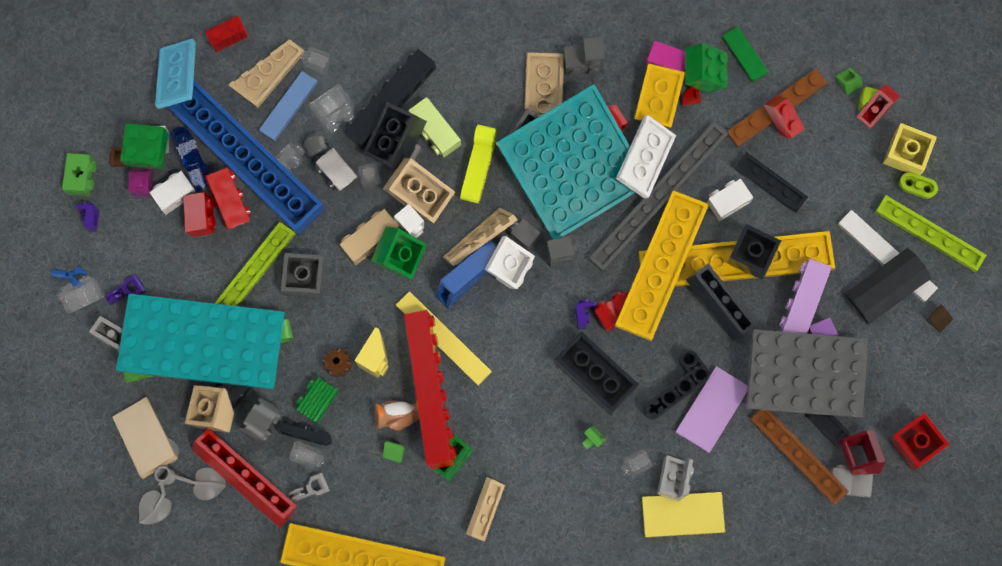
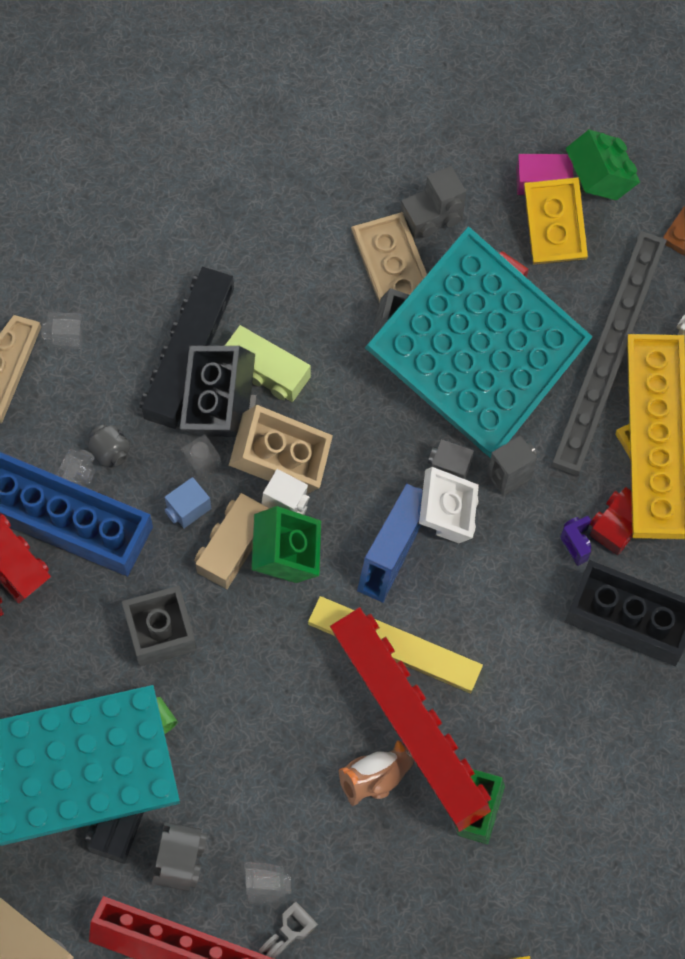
camera: 25 degrees left, 10 degrees down
(210, 409) = (95, 867): tan slope -> none
(256, 266) = (84, 637): lime plate -> none
(288, 106) = (45, 406): medium blue tile -> none
(306, 433) = (227, 855): black hinge -> none
(316, 400) = (247, 797): green brick -> none
(332, 109) = (112, 384): clear brick -> none
(334, 169) = (147, 464): brick -> none
(337, 369) = (257, 742): reddish brown brick -> none
(349, 203) = (187, 503): none -> medium blue brick
(373, 355) = (309, 701): light yellow slope -> none
(393, 451) = (390, 830): bright green slope -> none
(479, 163) = (347, 391): neon yellow beam -> none
(480, 235) = (391, 482): tan wing -> none
(485, 509) = (557, 864): tan plate -> none
(594, 437) = (667, 704): bright green tile -> none
(646, 156) = (572, 303): white tile -> none
(691, 97) = (595, 211): red tile -> none
(745, 54) = (641, 137): green tile -> none

